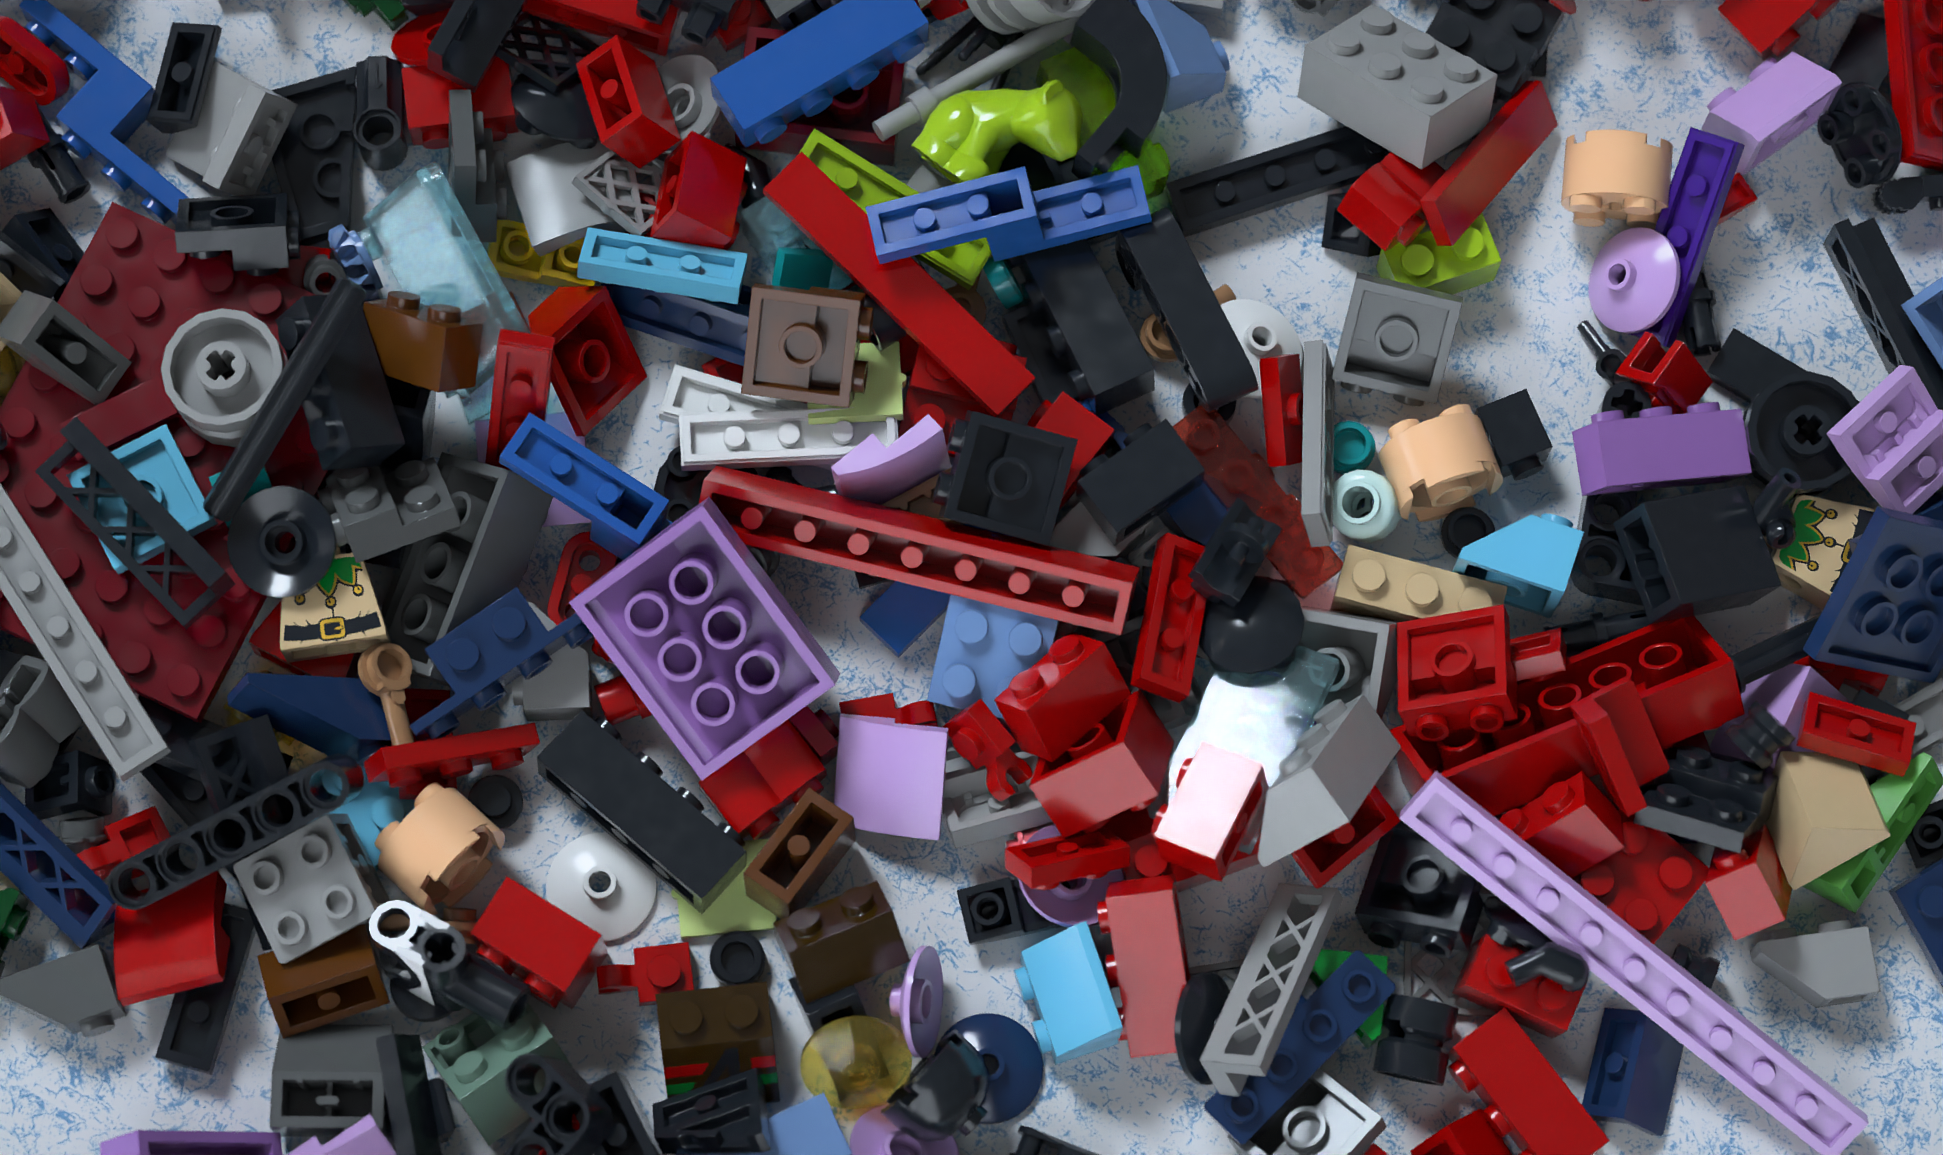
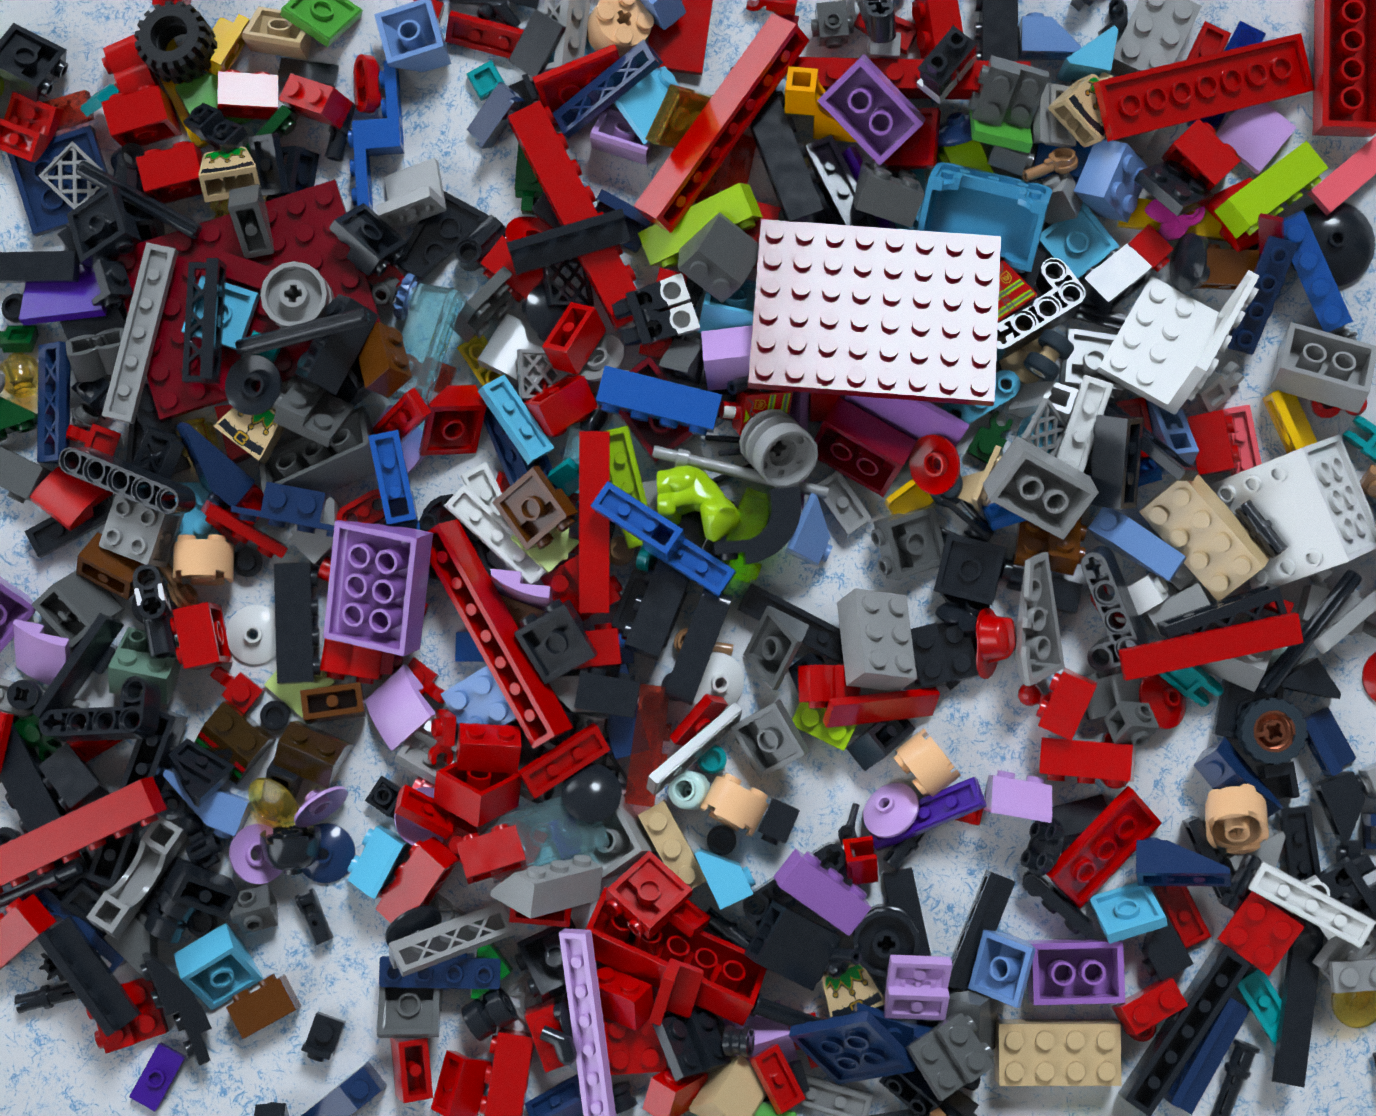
camera: 55 degrees right, 10 degrees up
(183, 76) = (419, 152): black slope -> none
(387, 672) = (247, 473): medium nougat plate -> none
(1233, 554) = (611, 761): black hips -> none
(1279, 224) = (775, 645): none -> dark grey slope
(1529, 216) = (879, 741): none -> black slope

